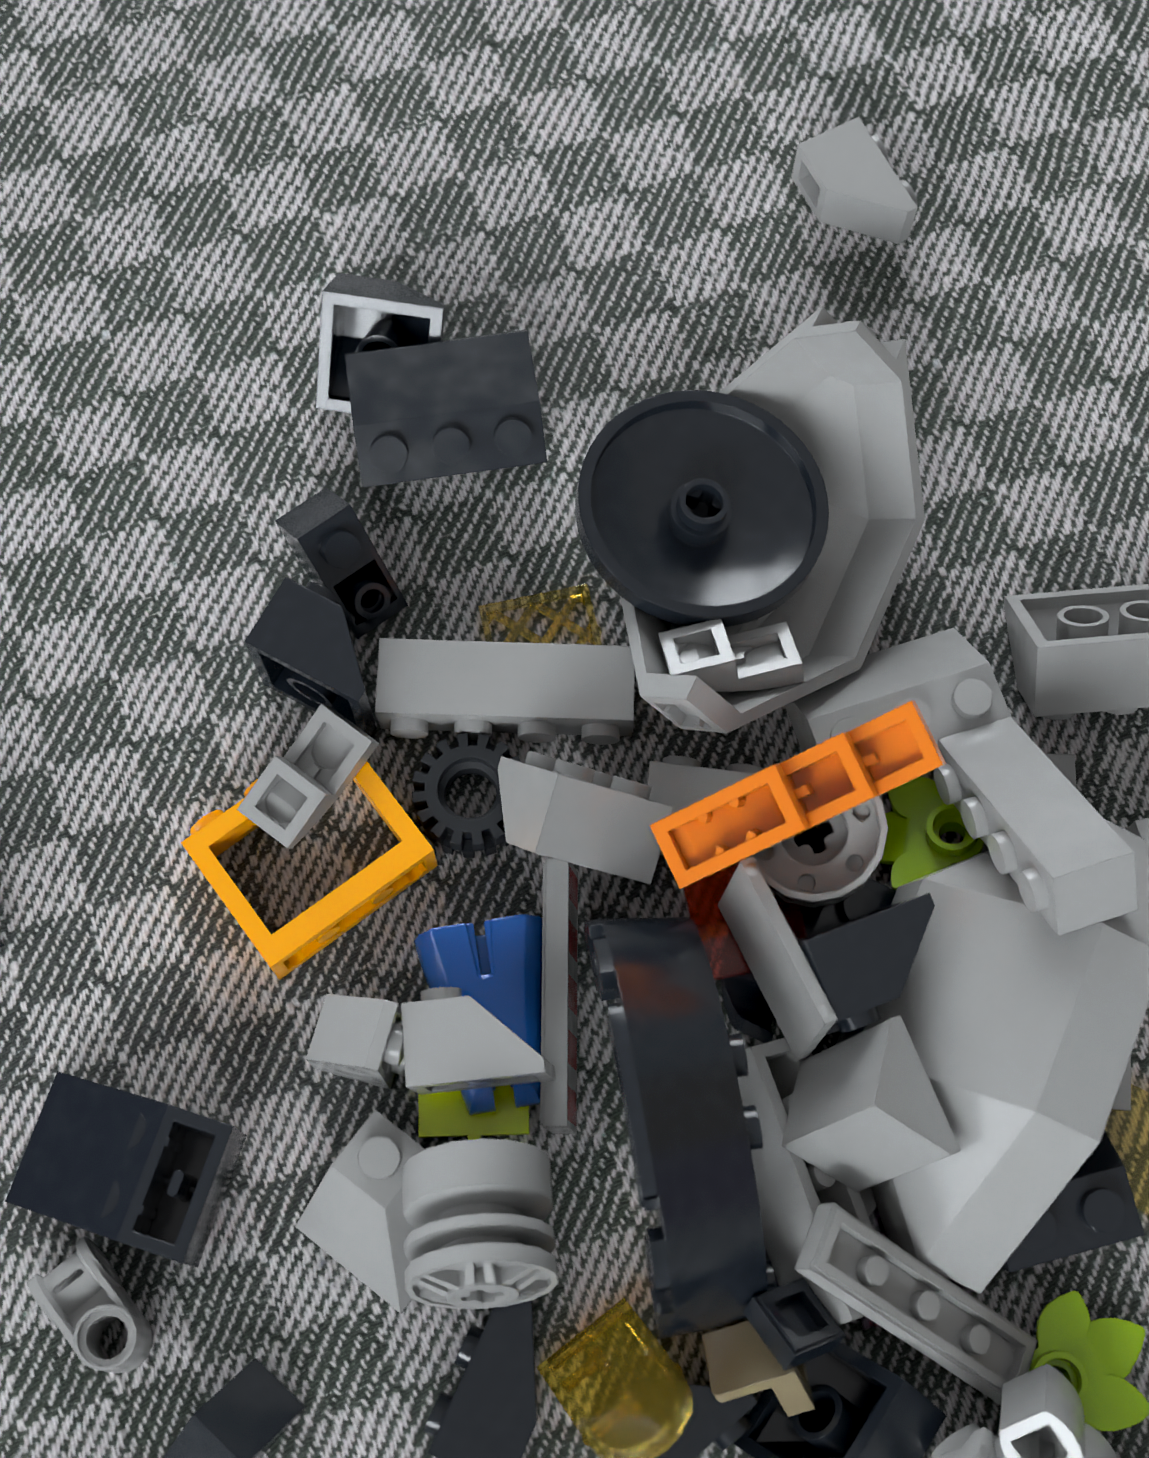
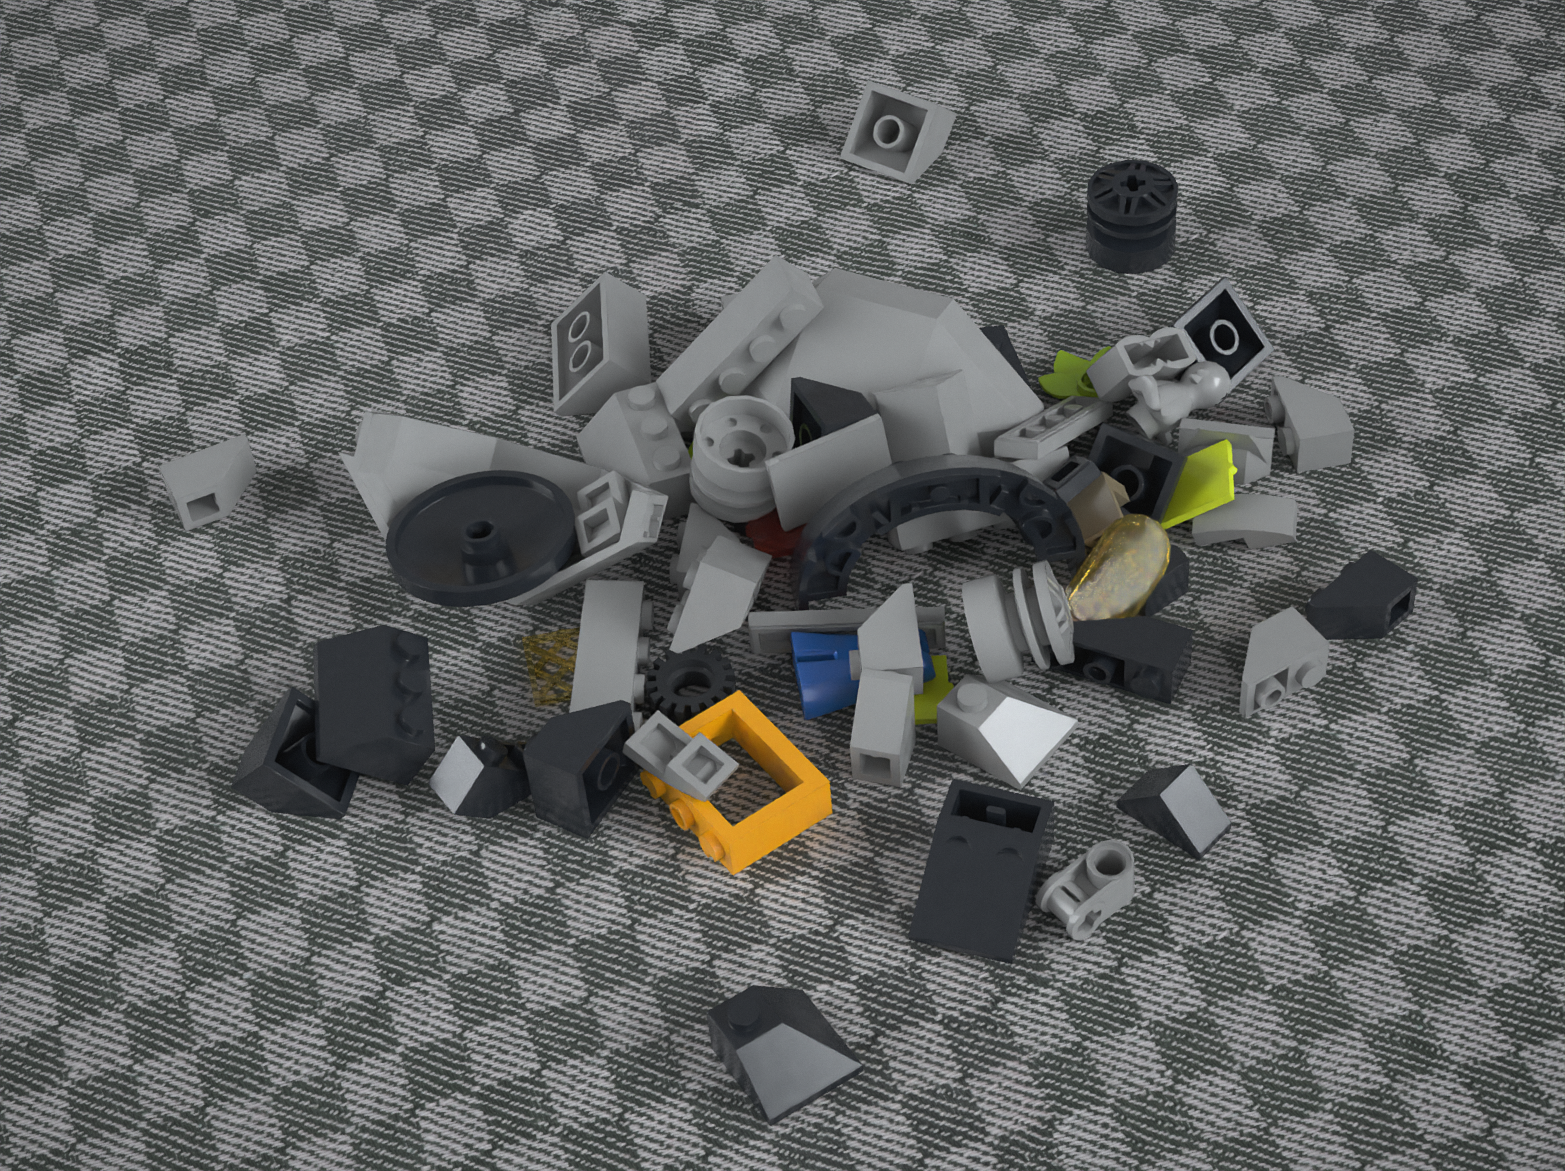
camera: 85 degrees left, 25 degrees down
(797, 794) = (724, 429): orange slope -> none

